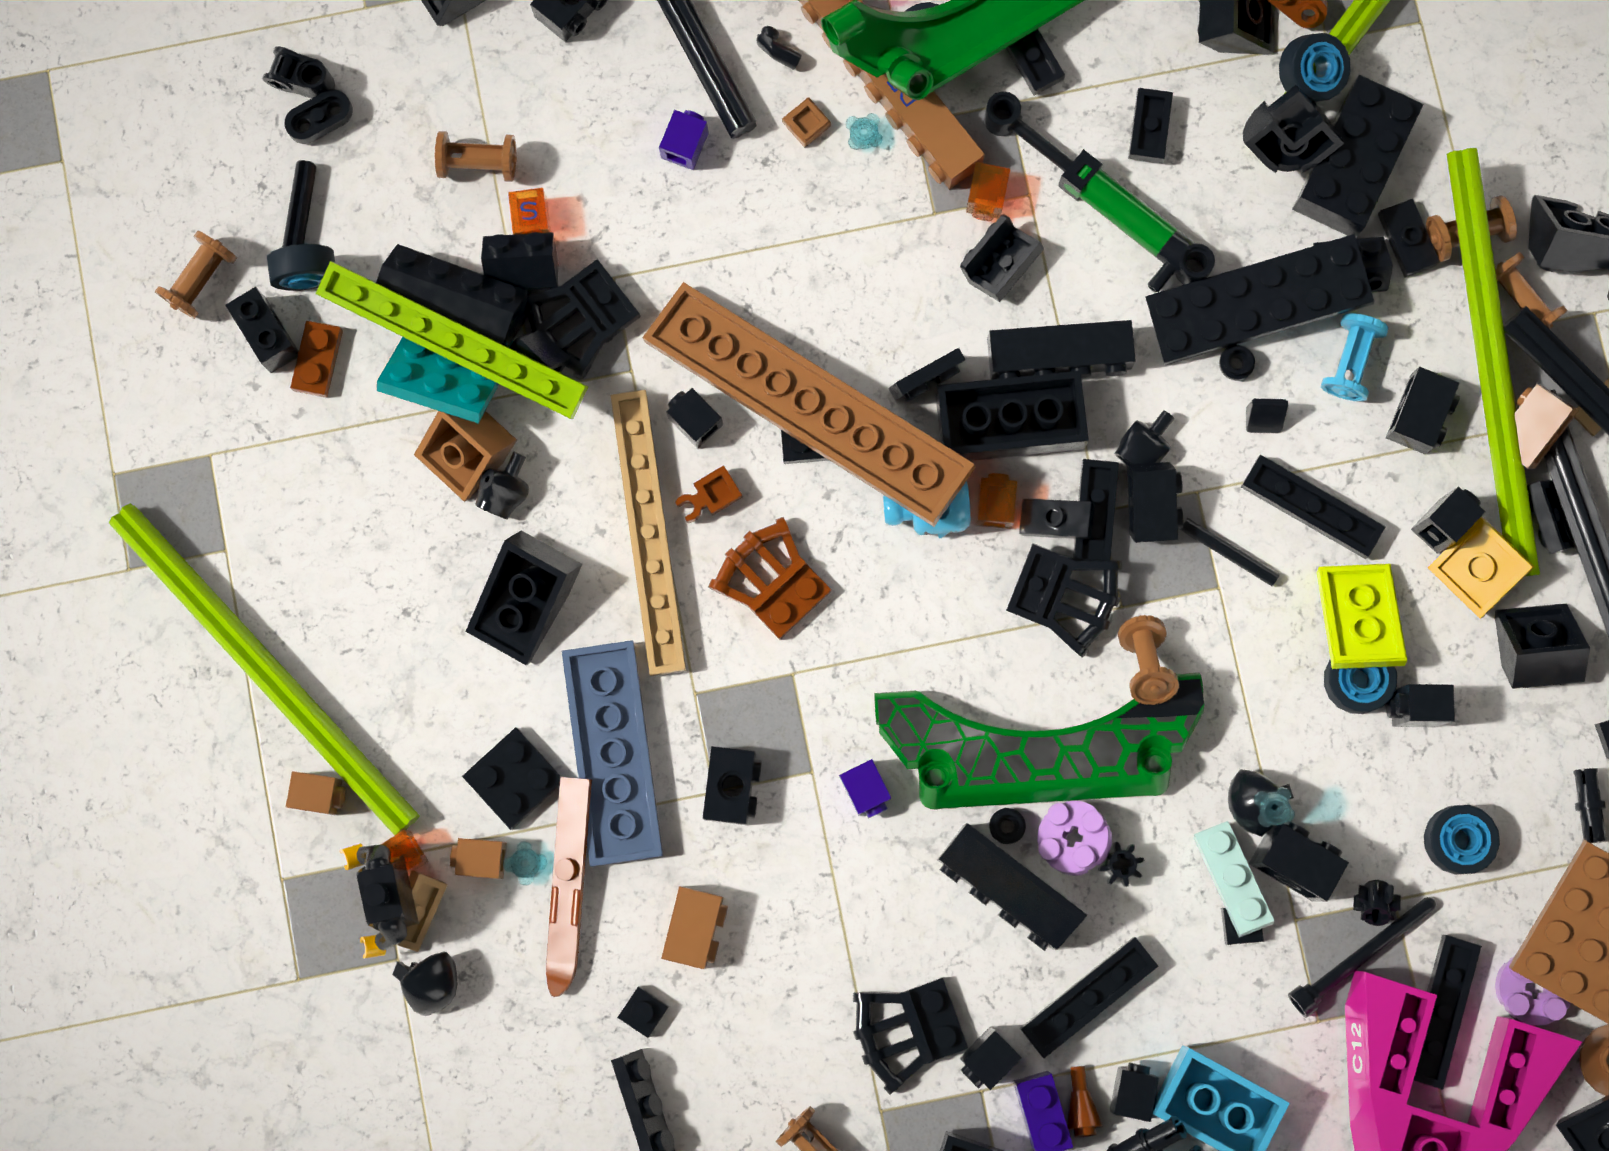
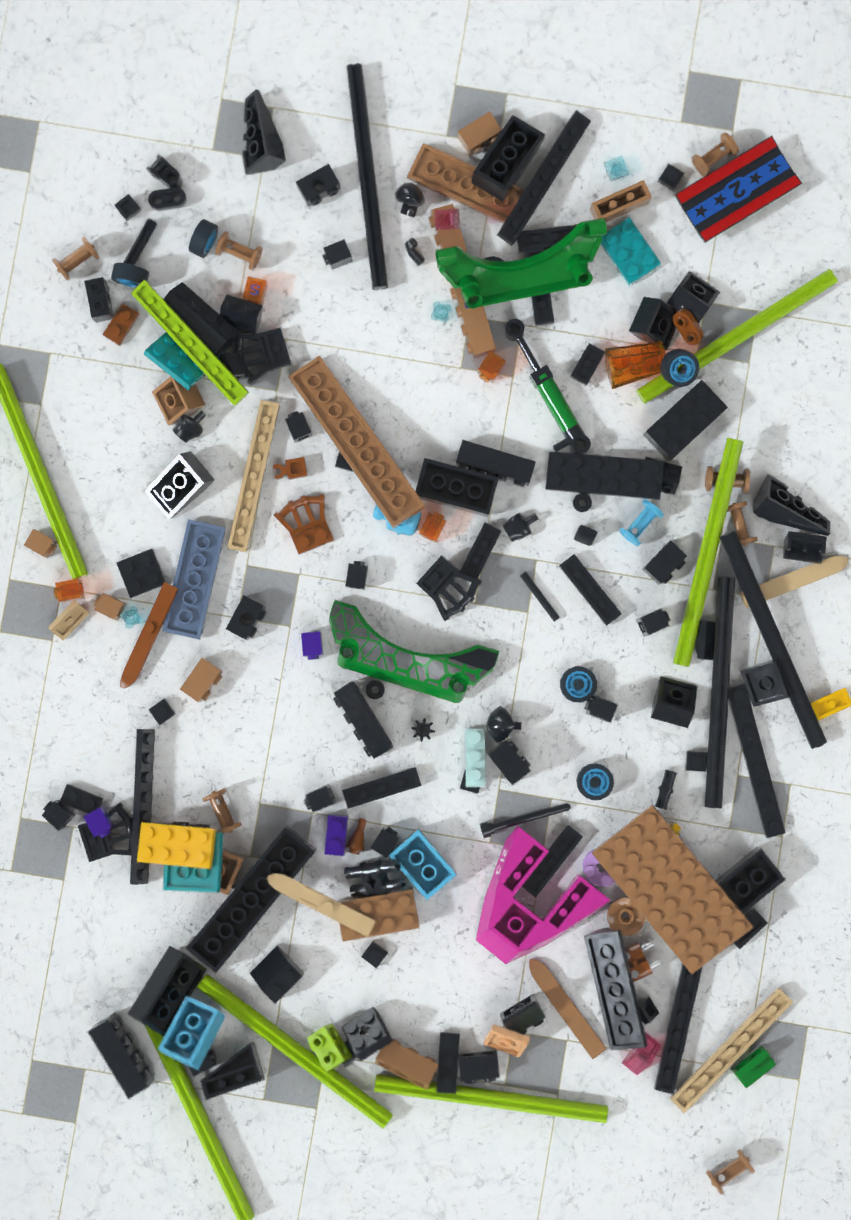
camera: 20 degrees right, 5 degrees up
(255, 156) = (127, 207): none -> black plate
(384, 895) = (55, 606): black torso -> none
(406, 157) = (203, 238): none -> black wheel
(428, 984) = (62, 658): black piece -> none
(648, 100) = (337, 254): none -> black brick
(684, 138) = (348, 281): dark purple brick -> none
(806, 122) = (414, 295): medium nougat tile -> none
(897, 636) = (357, 575): none -> black brick
(931, 1022) = (300, 769): black plate -> none
(939, 370) = (429, 450): black plate -> none
(1000, 258) = (483, 404): black bracket -> none
(1057, 518) = (459, 547): black plate -> none
(1085, 855) = (400, 698): lavender plate -> none
(1152, 682) = (477, 622): medium nougat hose -> none
(1154, 502) = (510, 556): black brick -> none
(1228, 91) = (633, 362): none -> clear orange wedge
(1282, 814) = (501, 734): clear light blue plate -> none
(1290, 133) = (653, 397): black brick -> none
(1361, 616) = (590, 653): neon yellow tile -> none
(1377, 902) = (540, 796): black gear -> none
(1408, 238) = (695, 472): black plate -> none
(1481, 567) = (660, 652): yellow plate -> none
(1540, 422) = (718, 591): slope -> none

